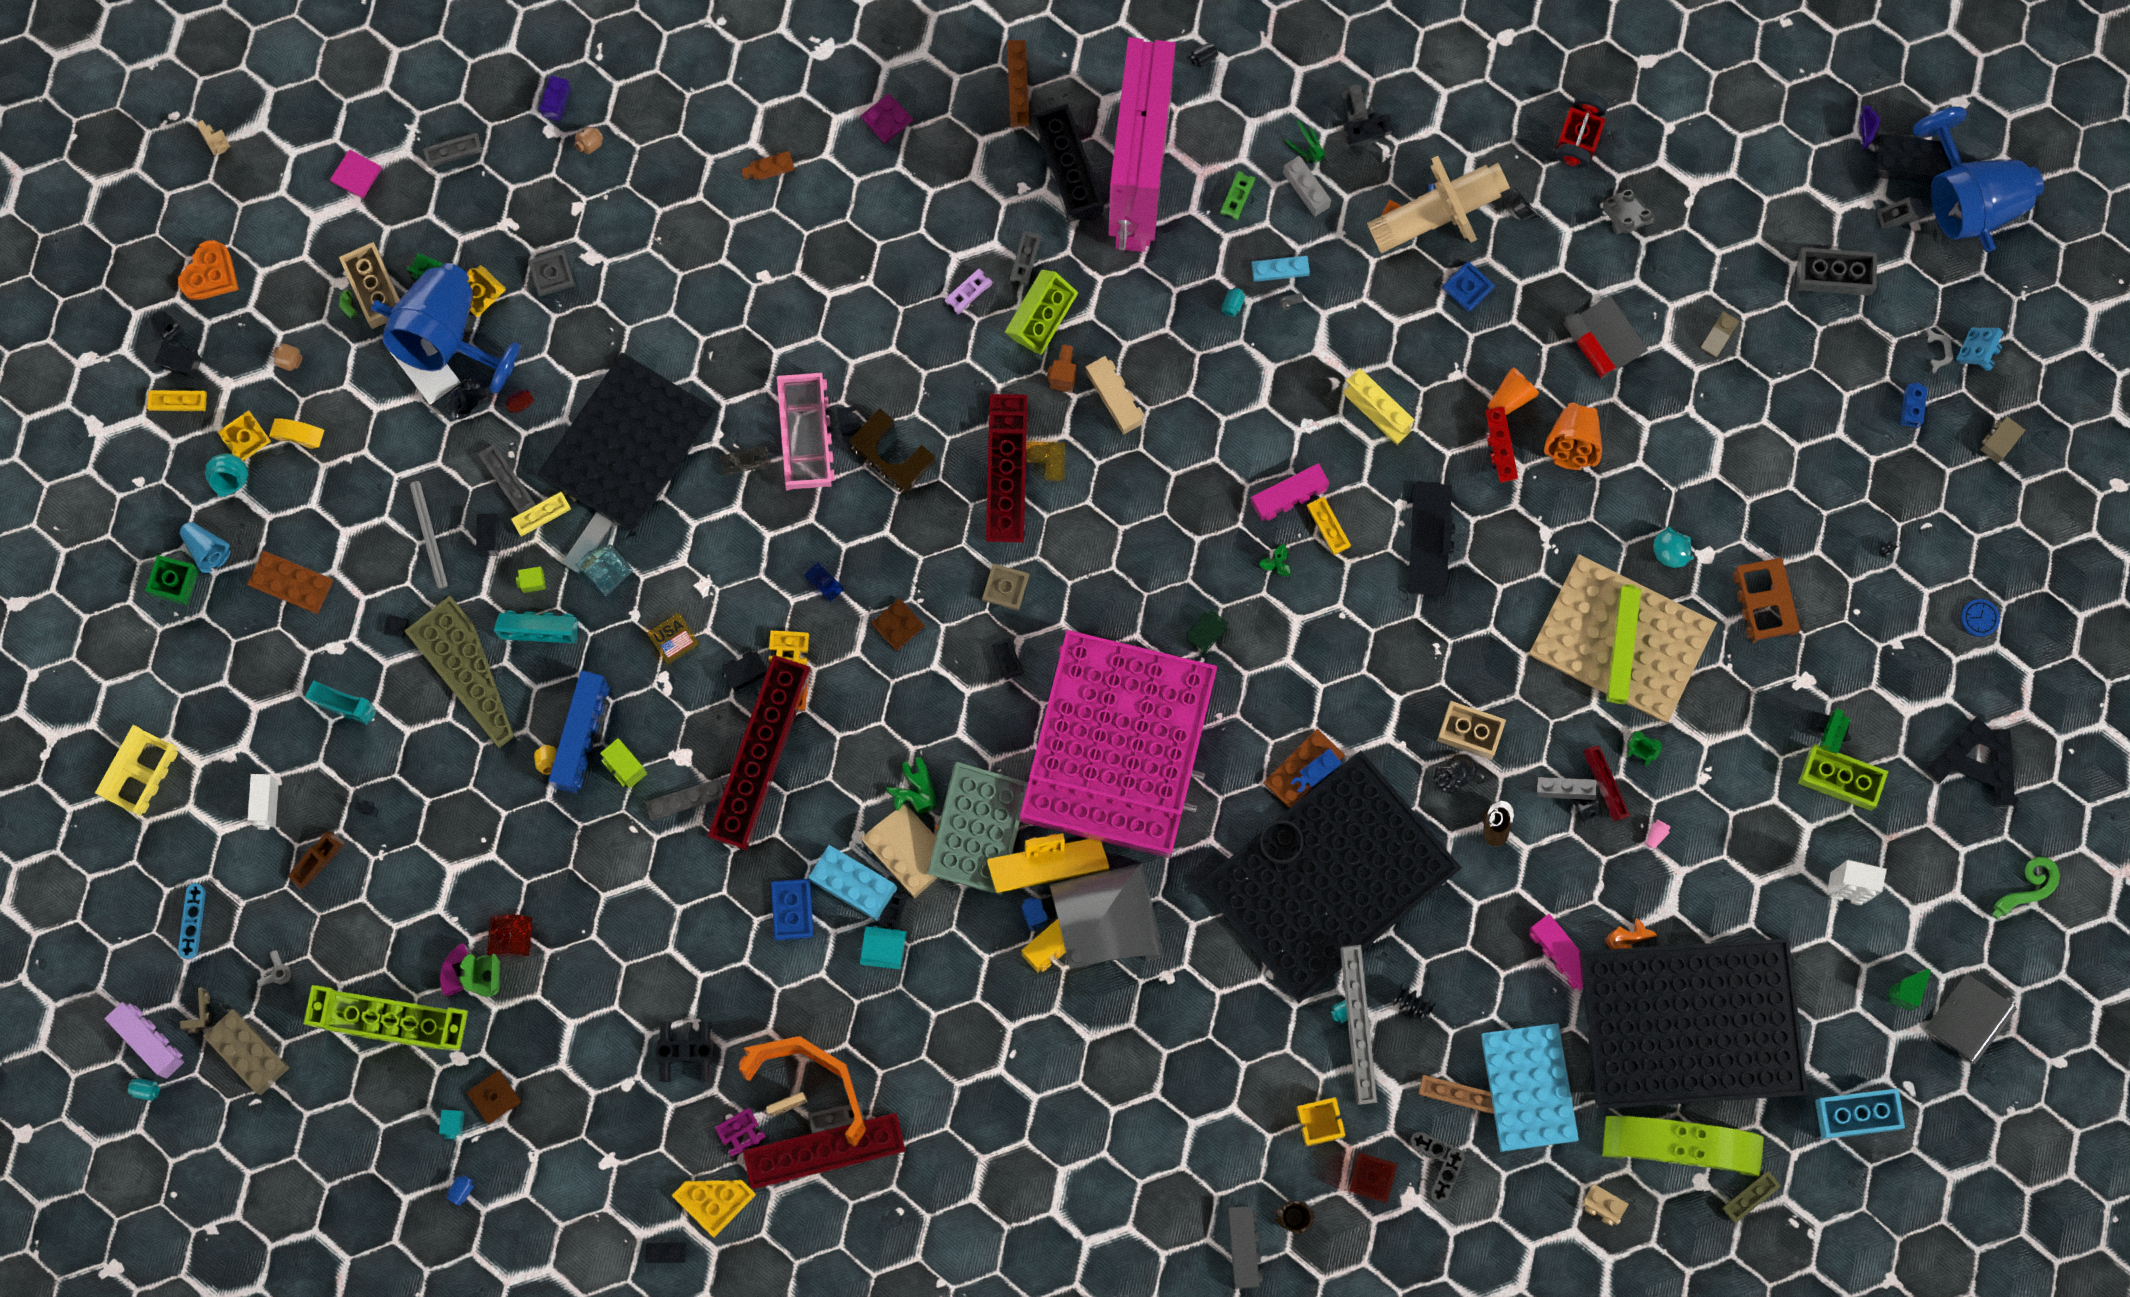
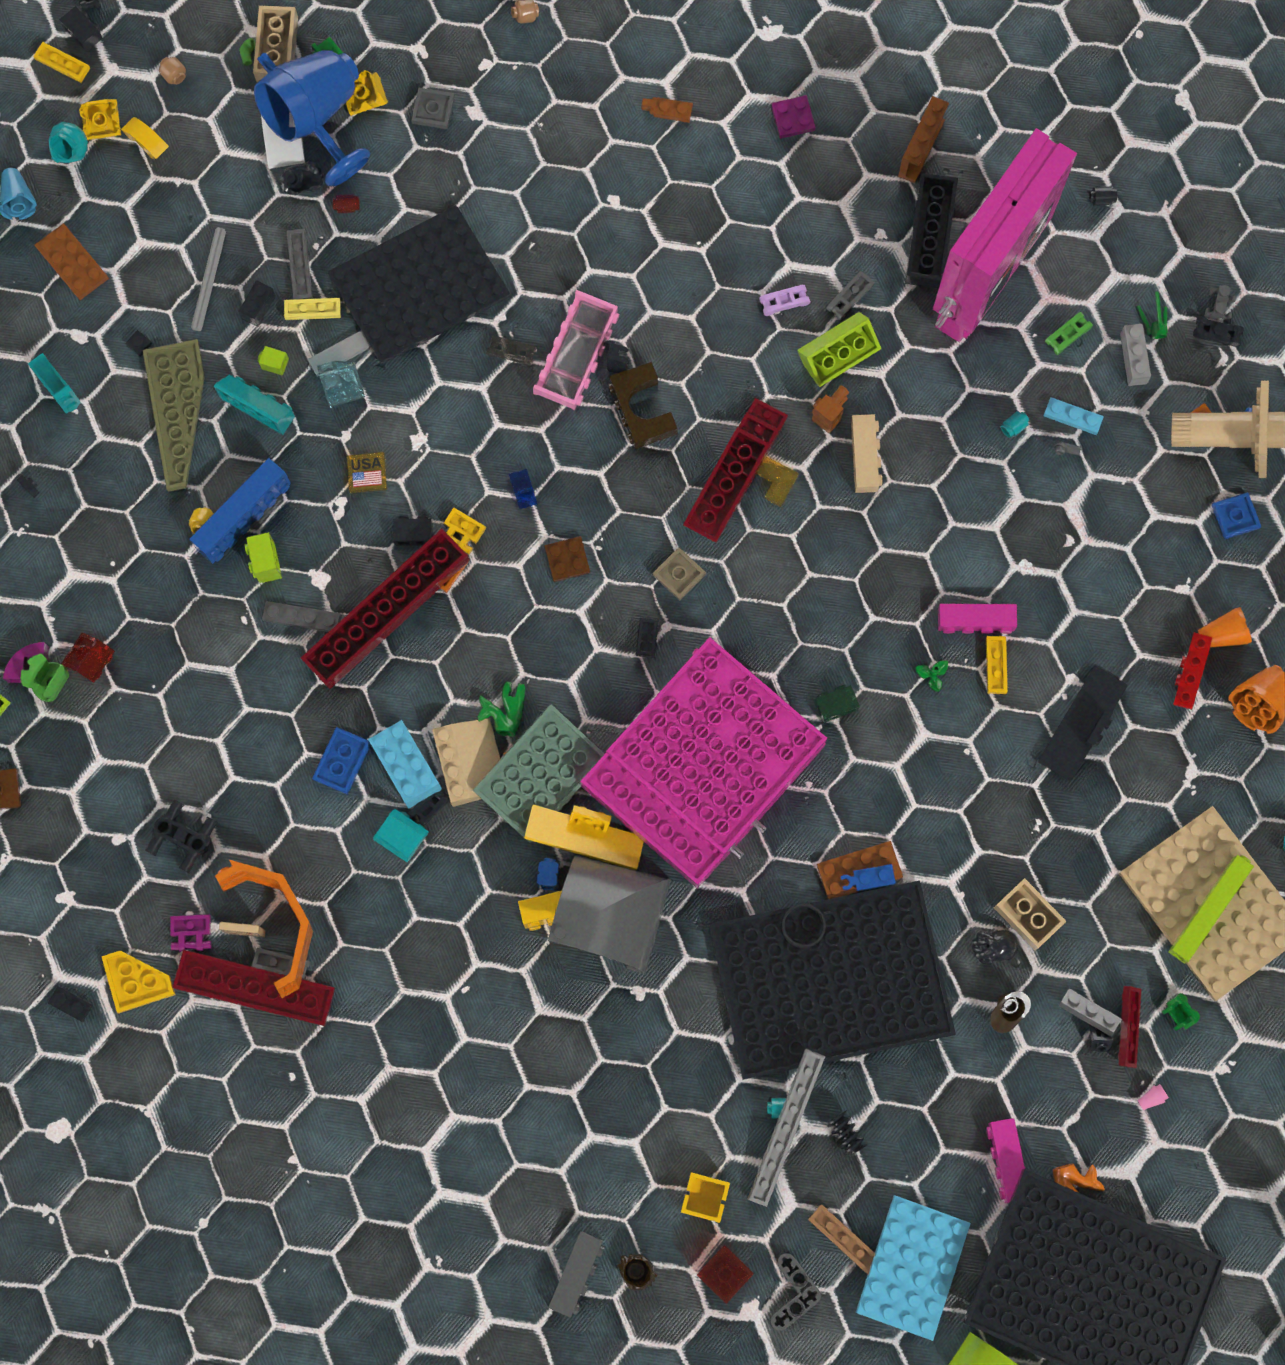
camera: 30 degrees right, 0 degrees up
(1378, 406) = (1097, 581): light yellow window -> none

